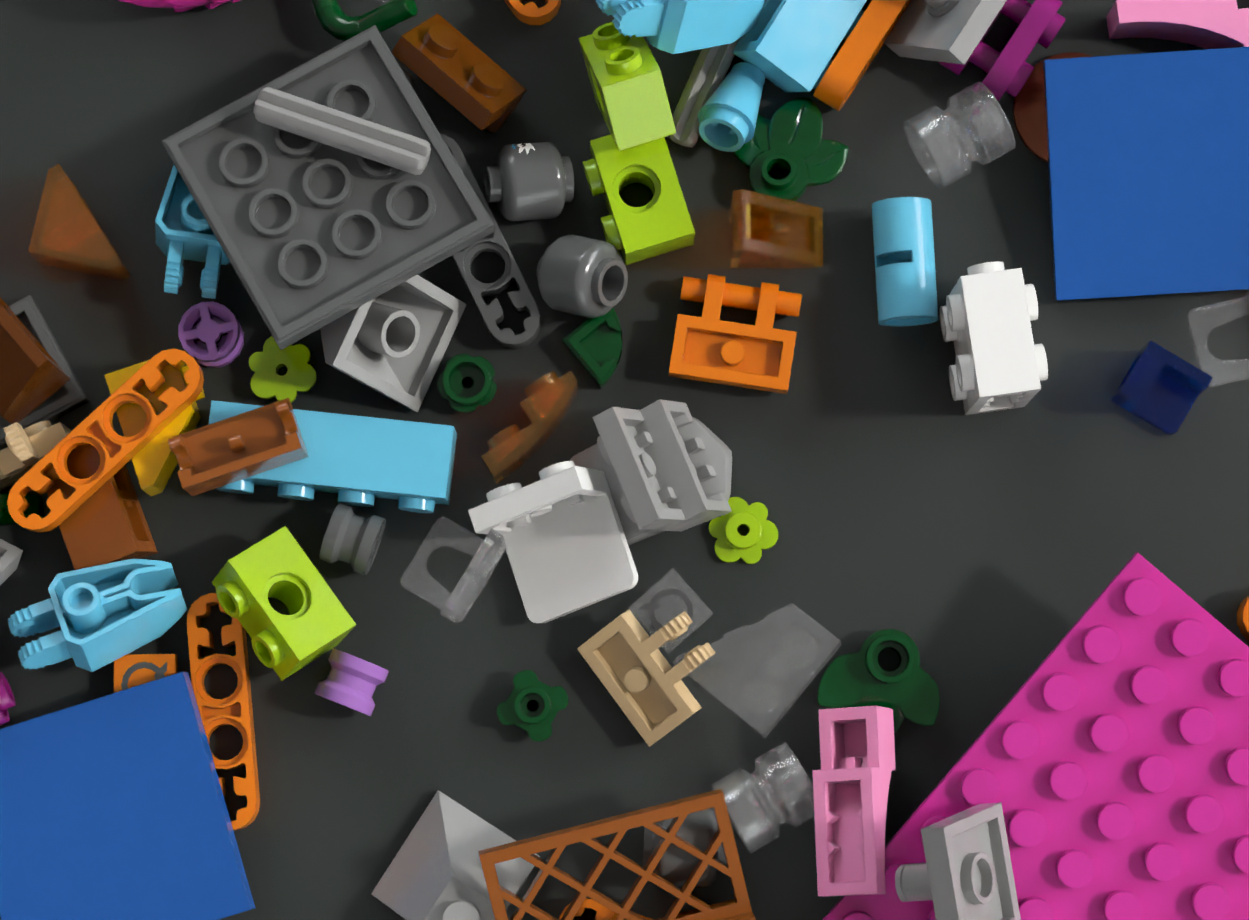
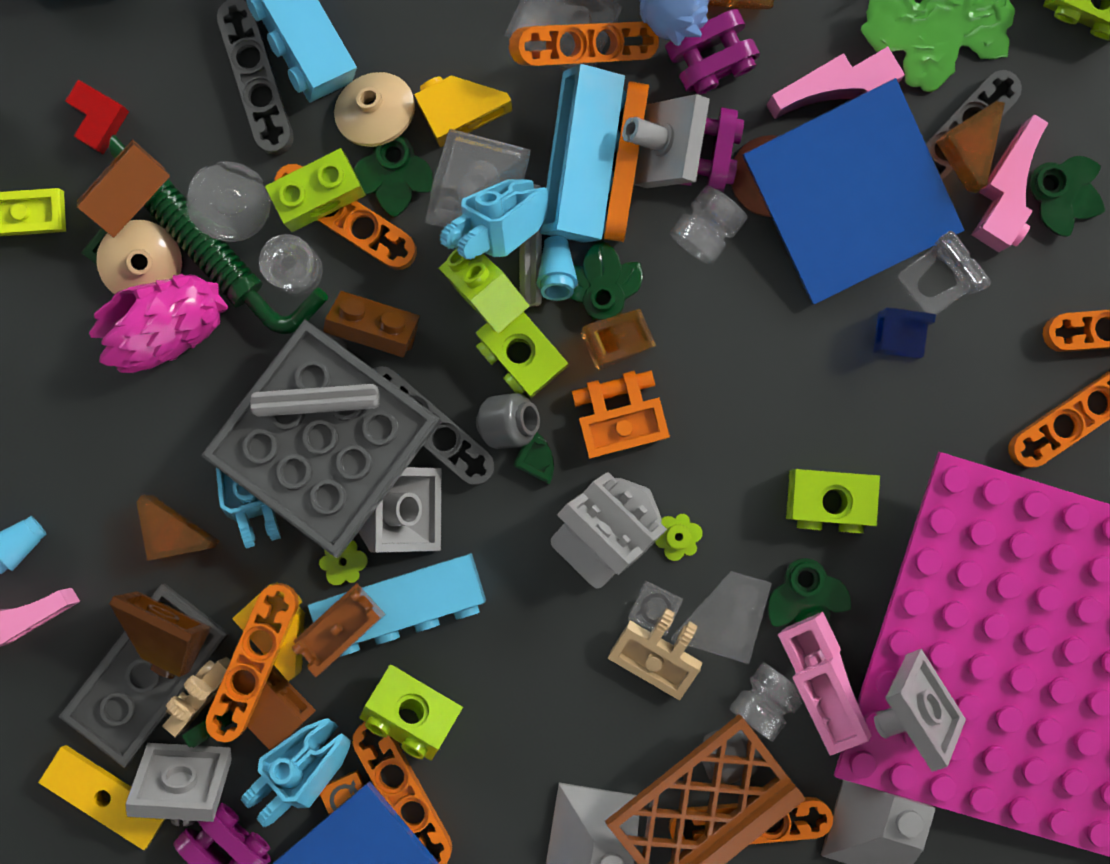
camera: 20 degrees left, 5 degrees up
(207, 323) = (281, 563): medium lavender wheel -> none
(351, 682) = (475, 742): medium lavender wheel -> none
(352, 539) = (435, 651): dark grey wheel -> none
(462, 367) = (475, 521): dark green plate -> none
(485, 555) = (492, 658): clear piece -> none
(528, 688) = (605, 699): dark green plate -> none
(529, 181) = (447, 373): dark grey head -> none
(544, 410) = (521, 514): clear orange slope -> none
(560, 539) = (569, 597): white bracket -> none
(904, 261) = (708, 321): medium azure pin -> none
(993, 339) = (787, 350): white brick -> none
(1007, 566) = (857, 492): none -> lime brick

